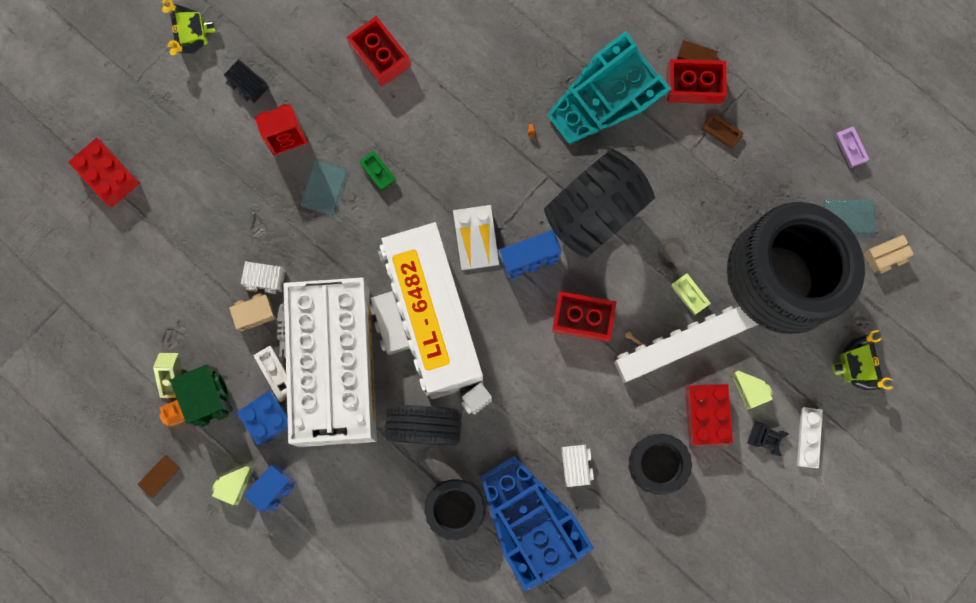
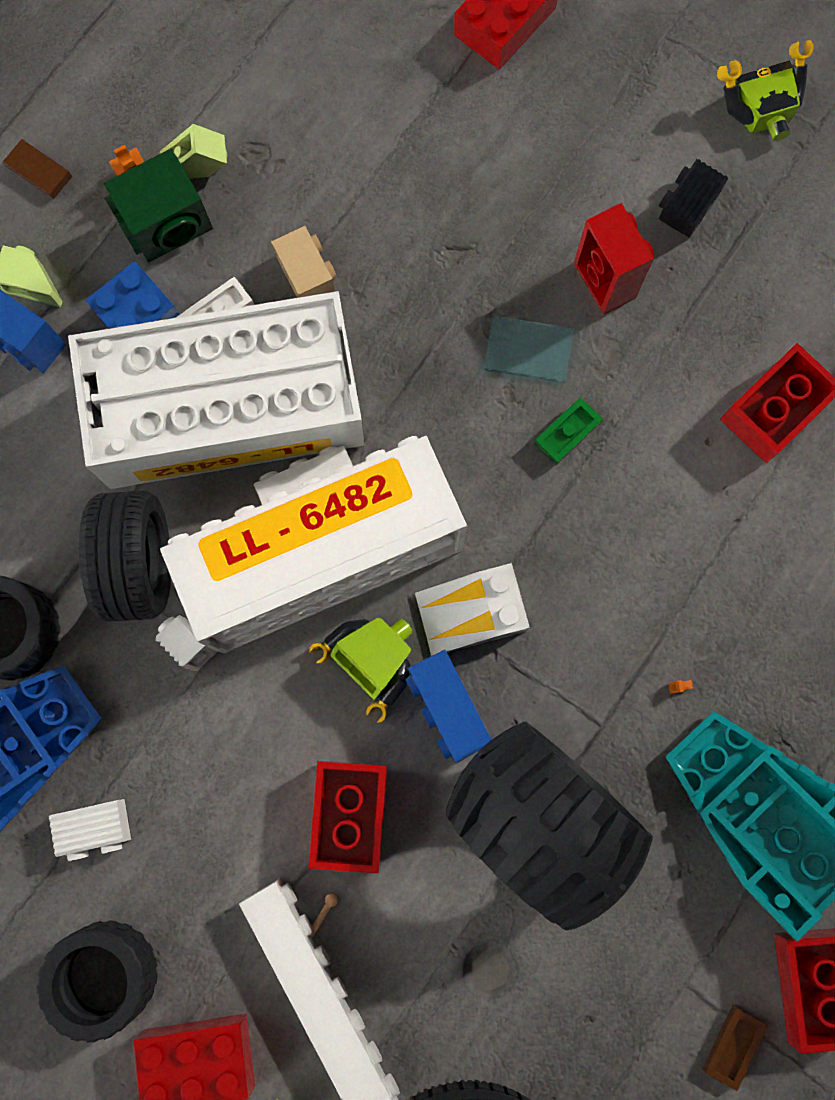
camera: 85 degrees right, 0 degrees up
(263, 276) = (363, 273): white brick -> none
(496, 295) = (372, 657): none -> lime torso
(690, 294) = (413, 1011): yellowish green plate -> none

